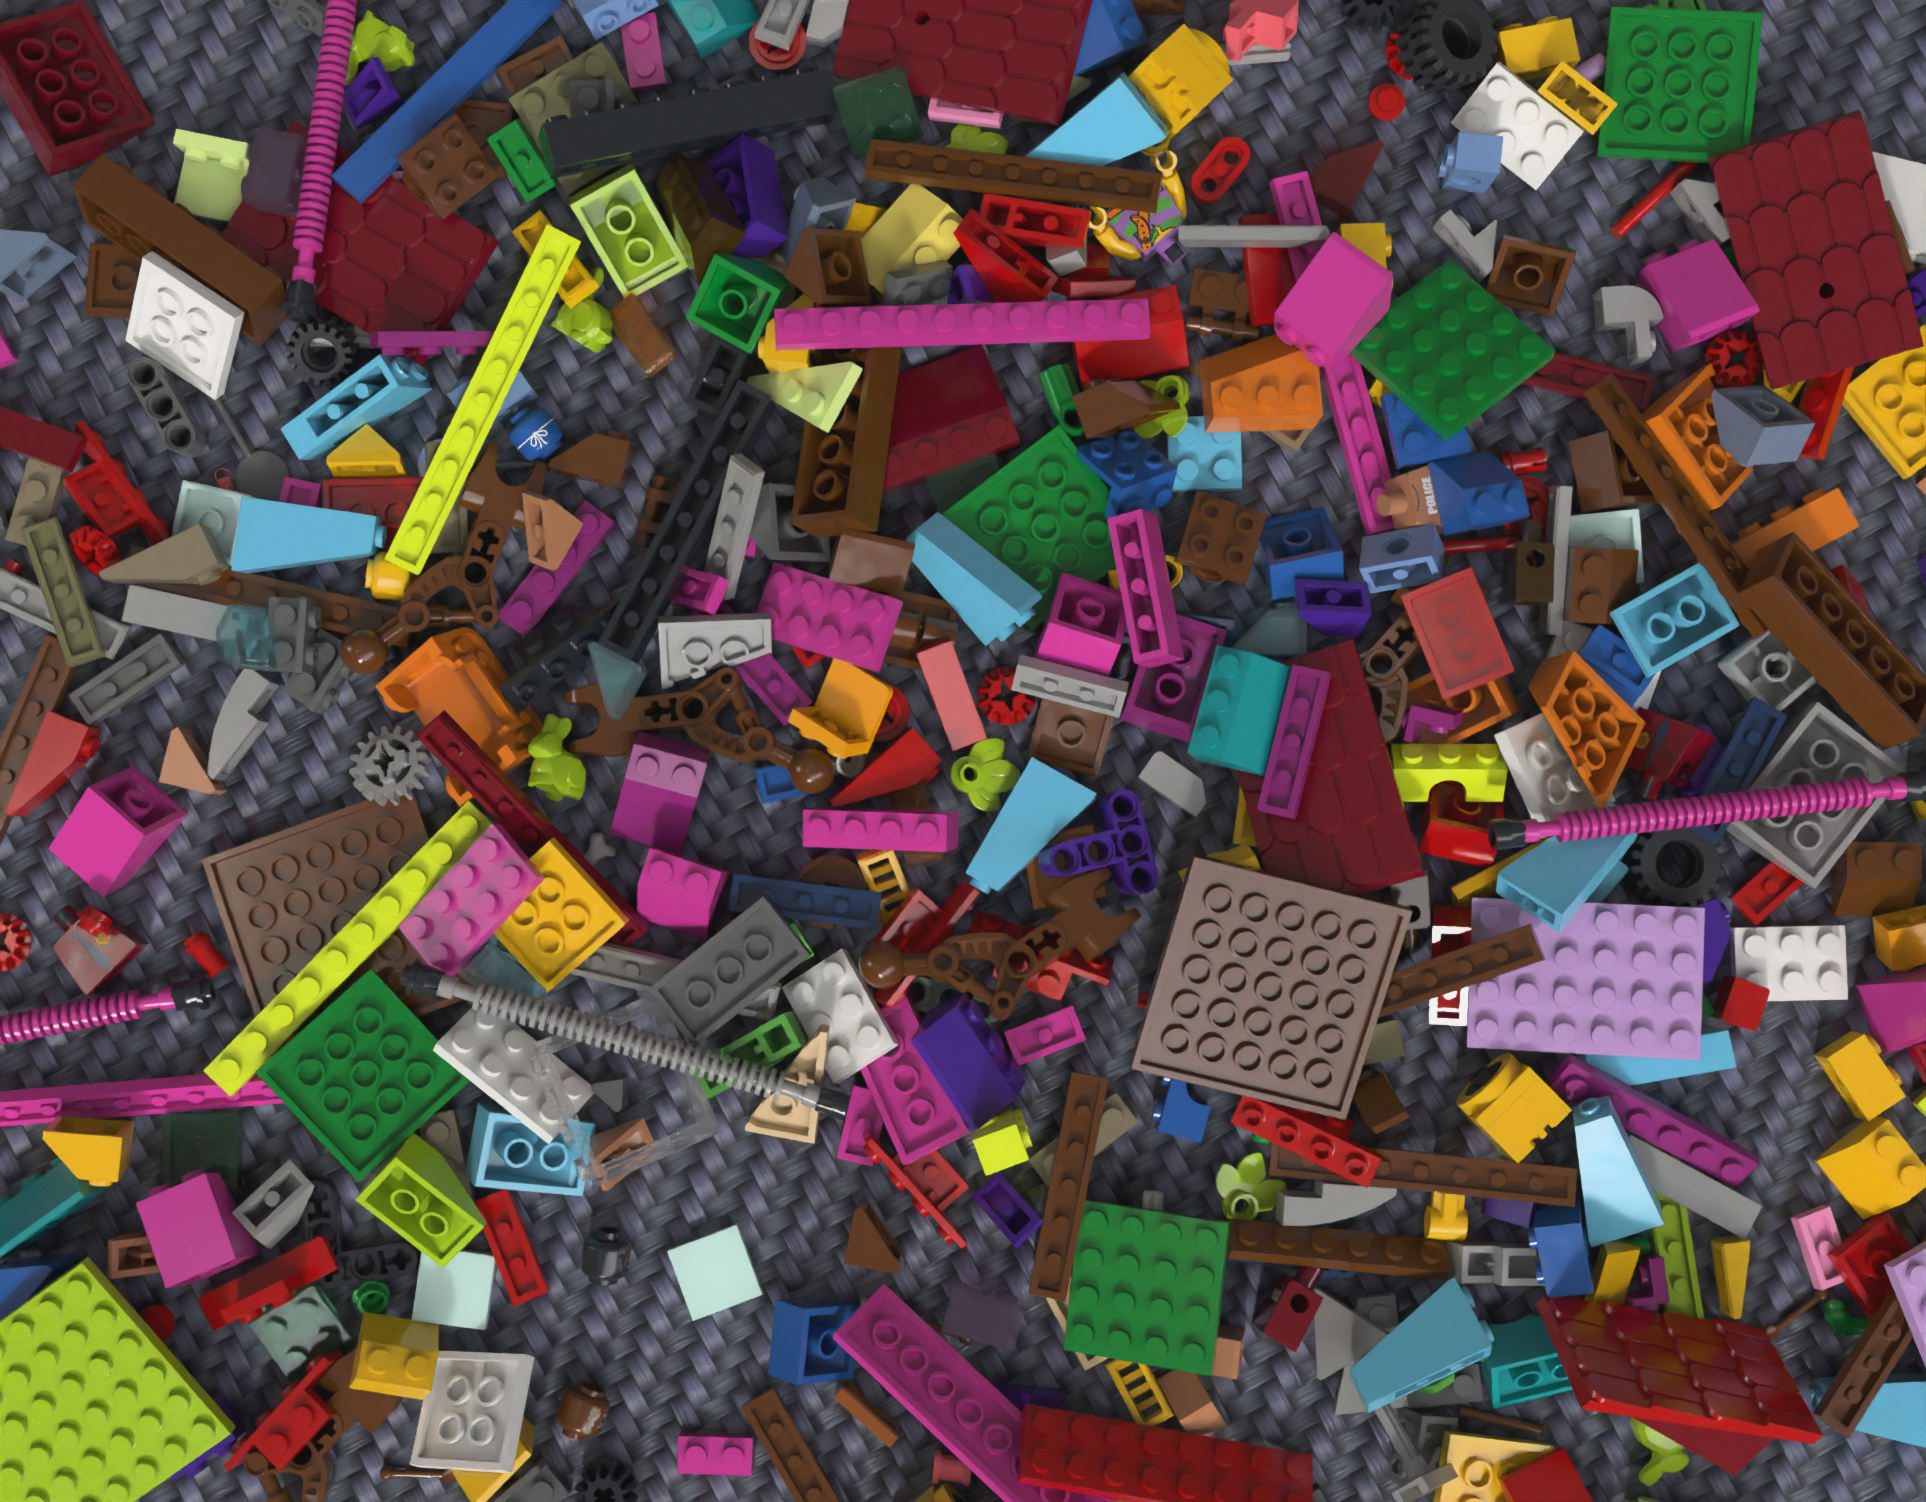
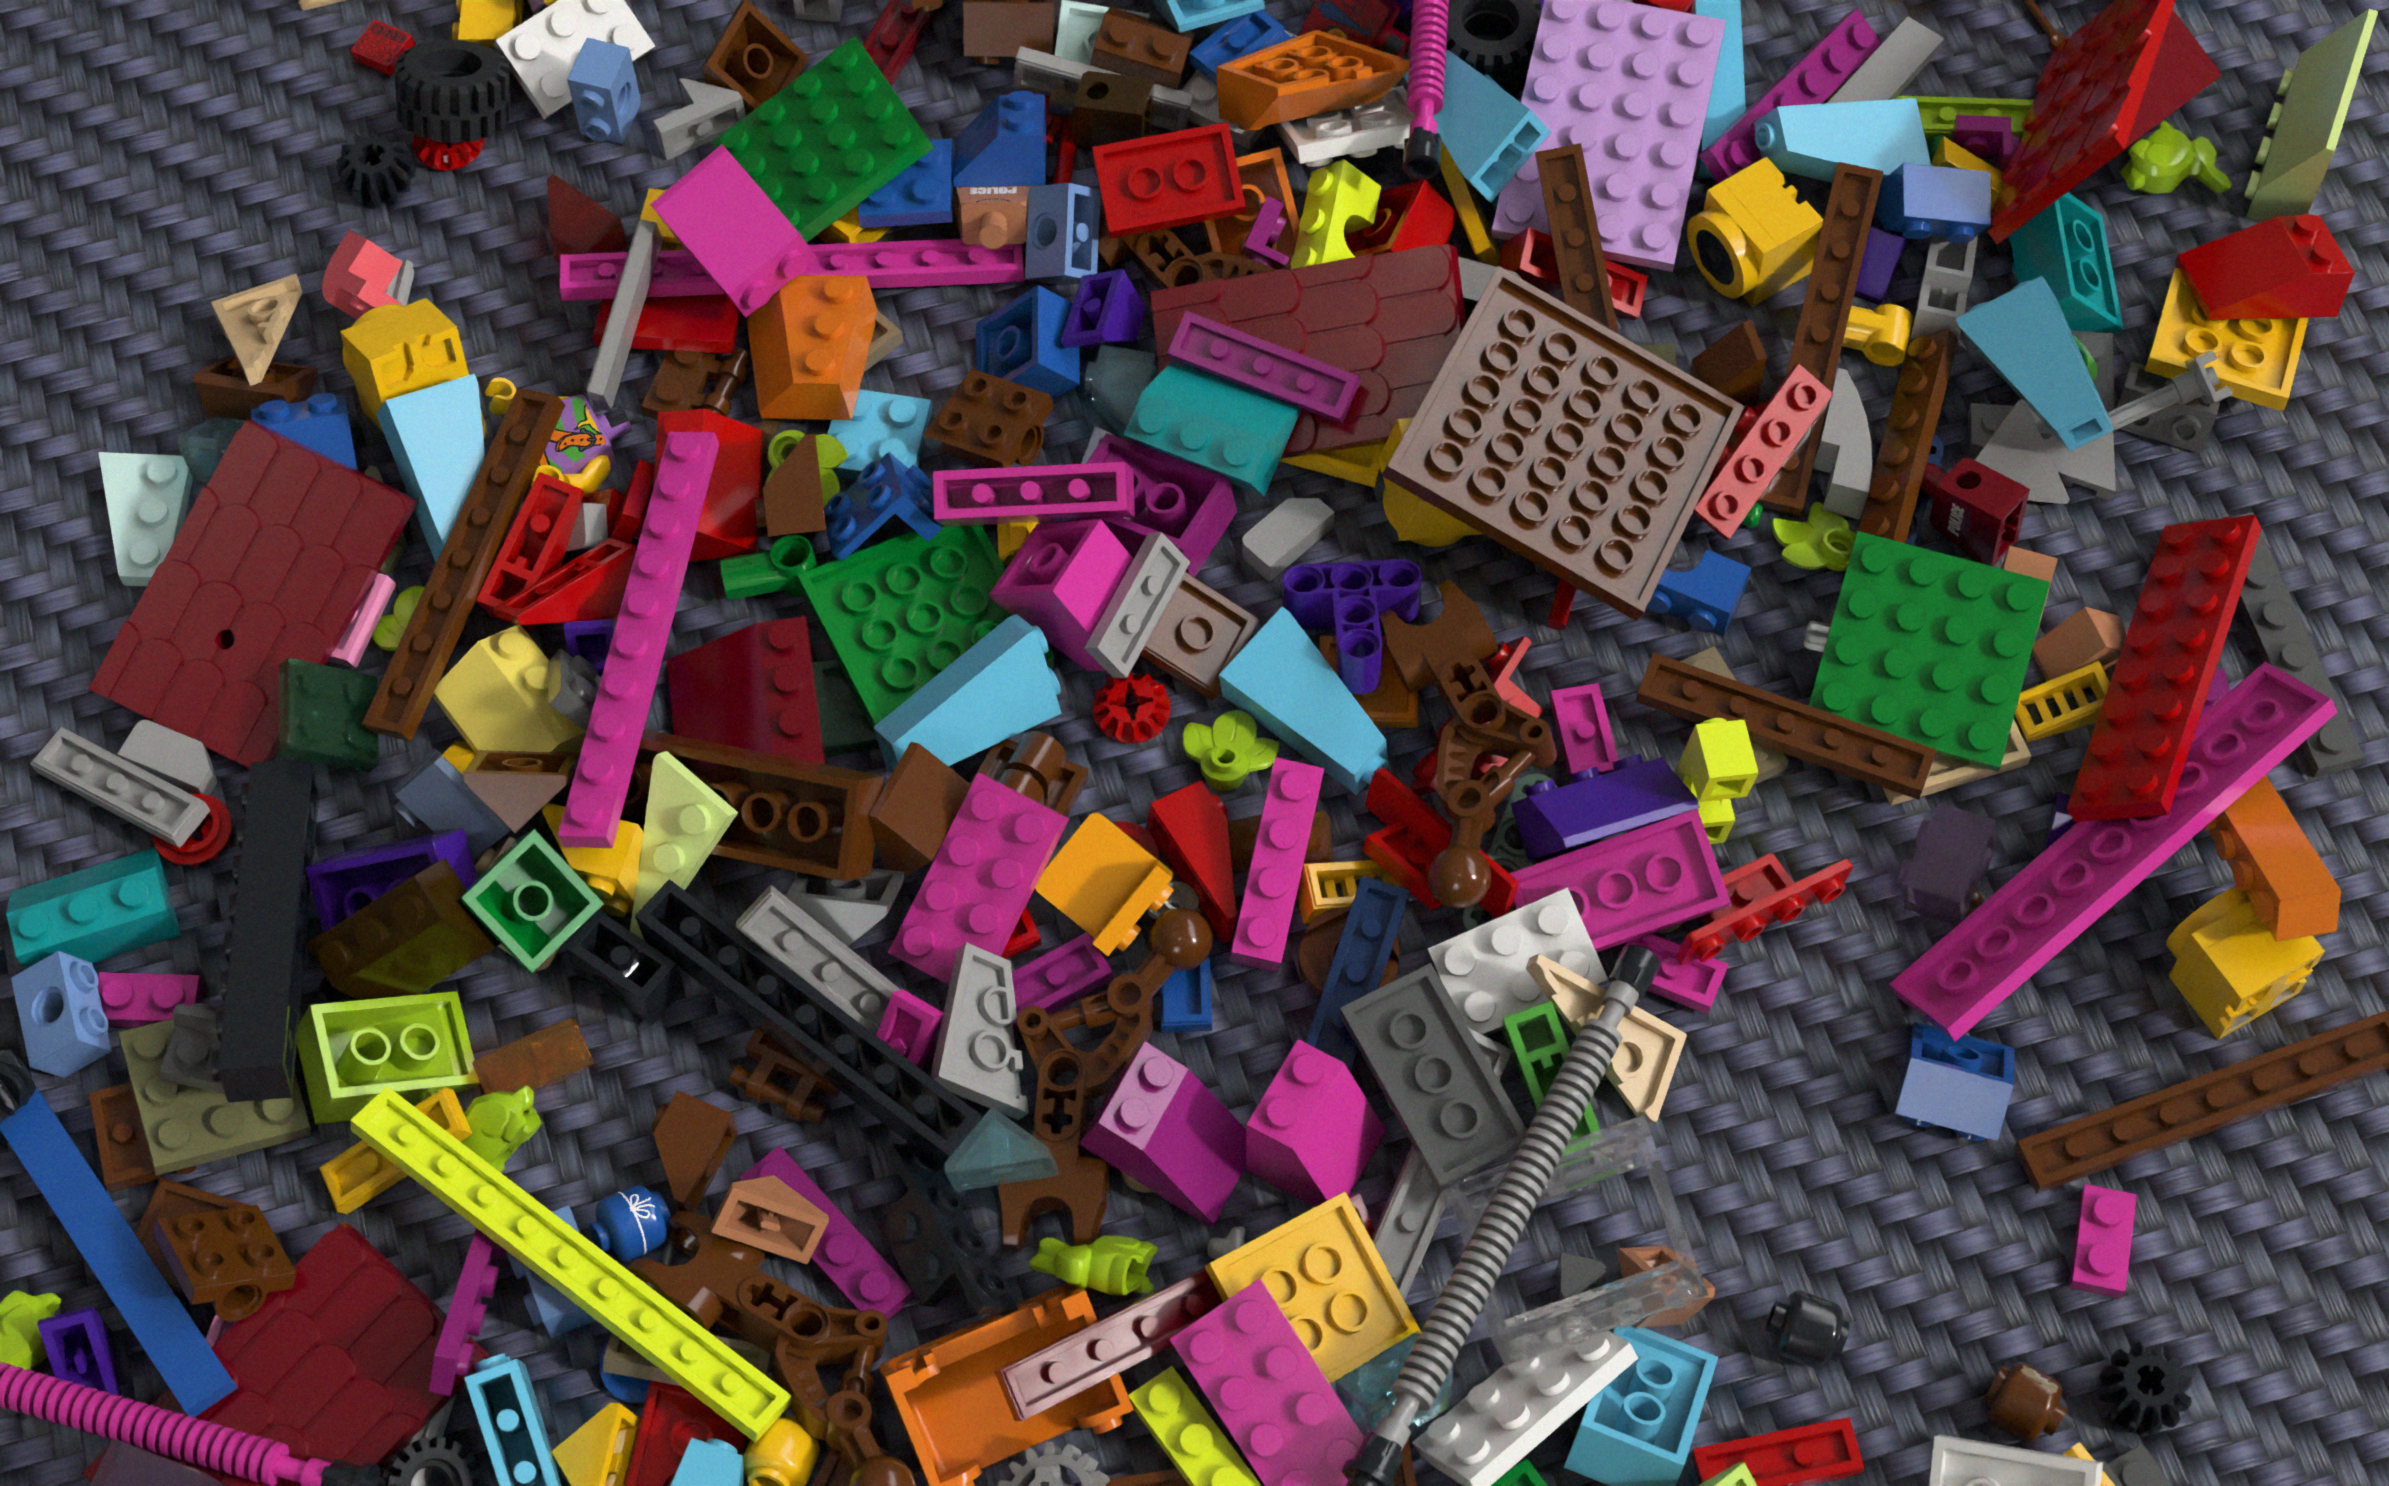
camera: 85 degrees left, 25 degrees down
(522, 160) = (245, 1171): green plate -> none
(715, 1272) = (1847, 1197): light aqua tile -> none
(867, 1413) = (2062, 1029): dark orange tile -> none
(871, 1243) = (1821, 973): reddish brown slope -> none
(950, 693) = (1115, 759): tile -> none
(950, 1468) = (2146, 939): coral bush -> none
(1008, 1209) = (1810, 803): dark purple slope -> none
(1218, 171) = (531, 360): red plate -> none
(1386, 102) = (501, 176): red plate -> none
(1502, 1420) = (2139, 321): reddish brown piece -> none
(1524, 461) = (973, 103): red pin -> none
(1730, 1267) = (1984, 62): yellow slope -> none

